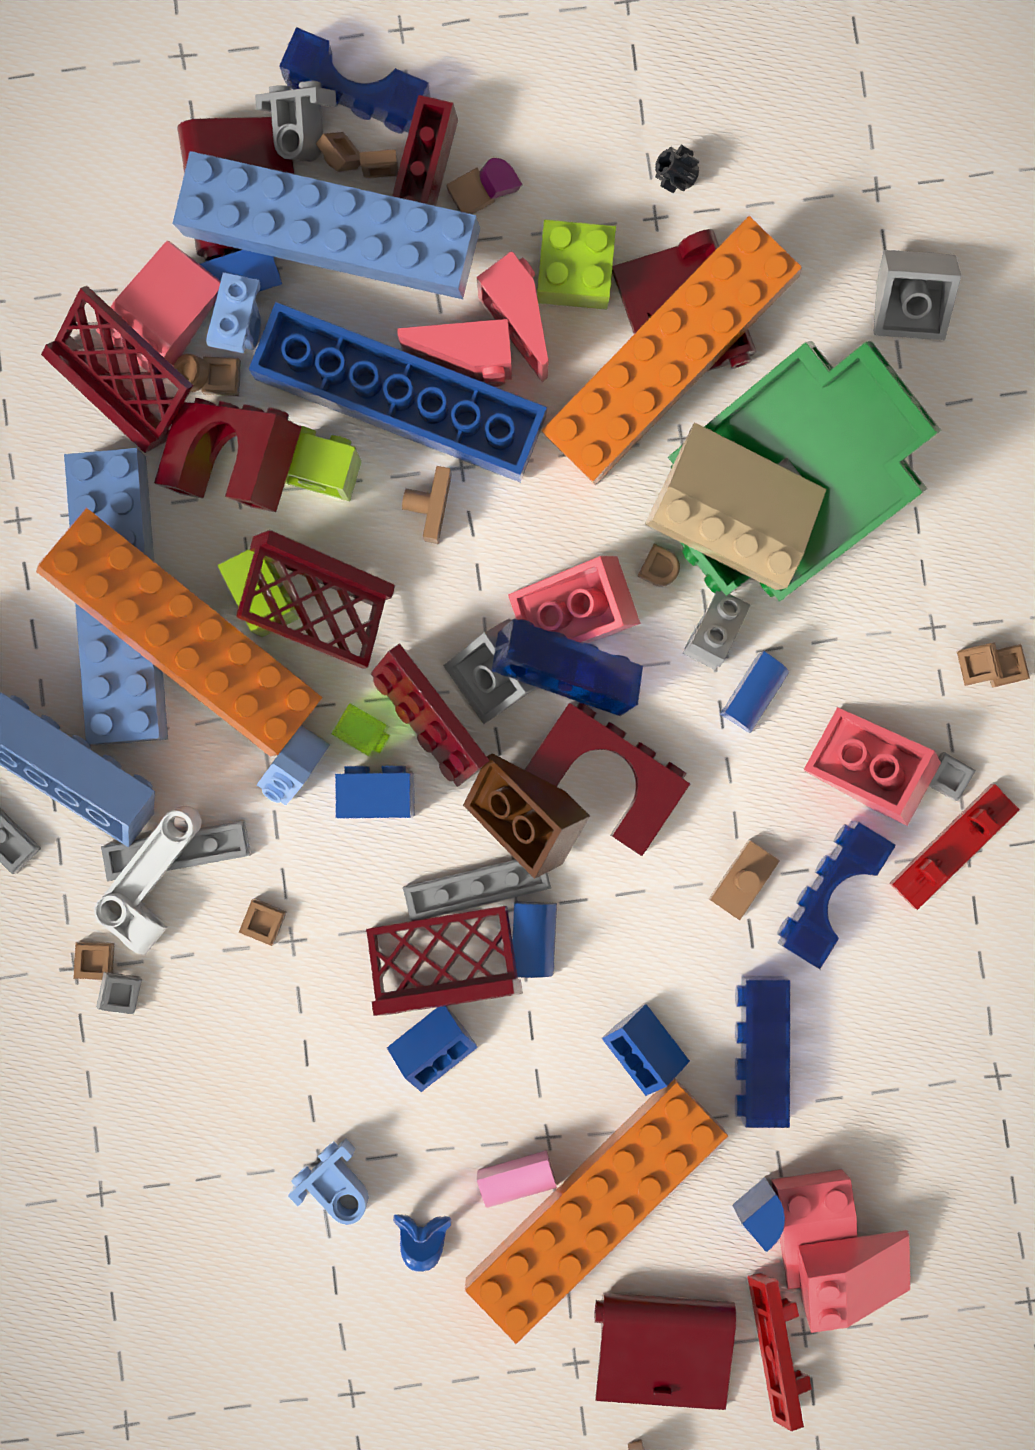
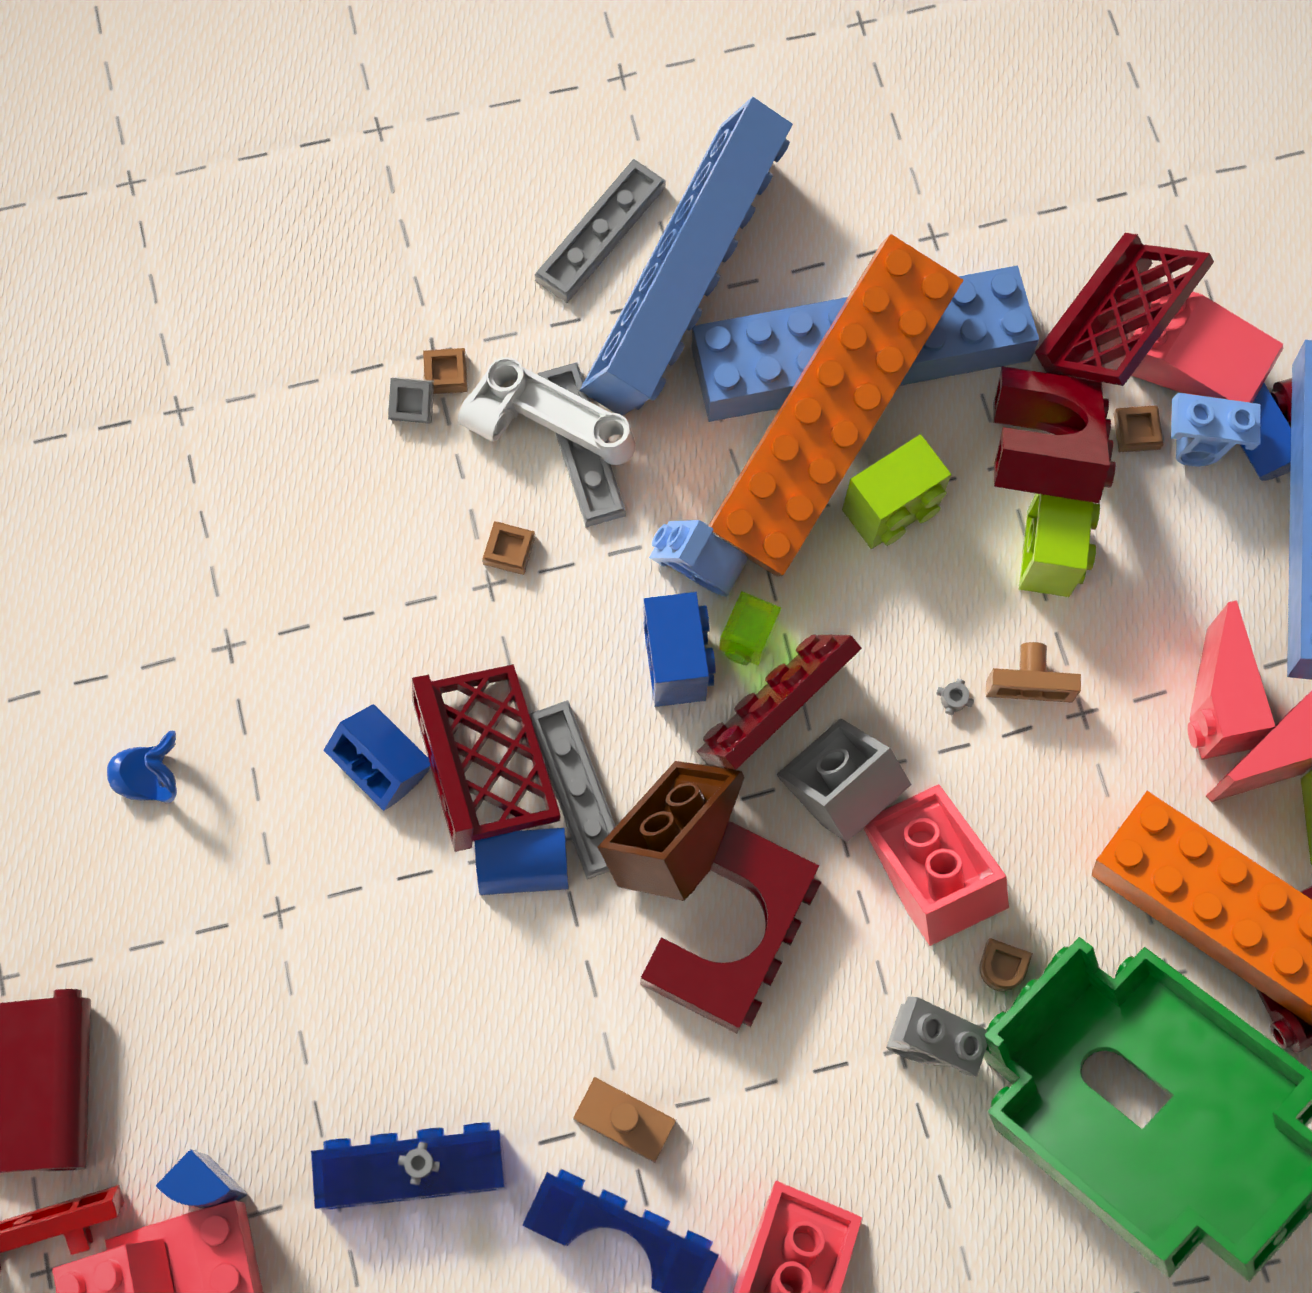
camera: 85 degrees right, 15 degrees down
(193, 369) = (1137, 394): medium nougat tile -> none
(317, 569) = (934, 554): dark red fence -> none
(330, 1181) = (208, 656): light blue pin -> none
(397, 392) = (1159, 626): blue brick -> none
(437, 569) = (955, 696): none -> light grey piece
(516, 1179) = (224, 875): bright pink brick -> none
(567, 667) = (862, 856): clear blue brick -> none
(594, 1210) = (197, 976): orange brick -> none
(646, 1050) = (397, 1017): blue brick -> none
(737, 508) = (1099, 1030): tan slope -> none
(755, 691) = (866, 1103): blue brick -> none
(766, 1044) = (419, 1163): none -> light grey piece

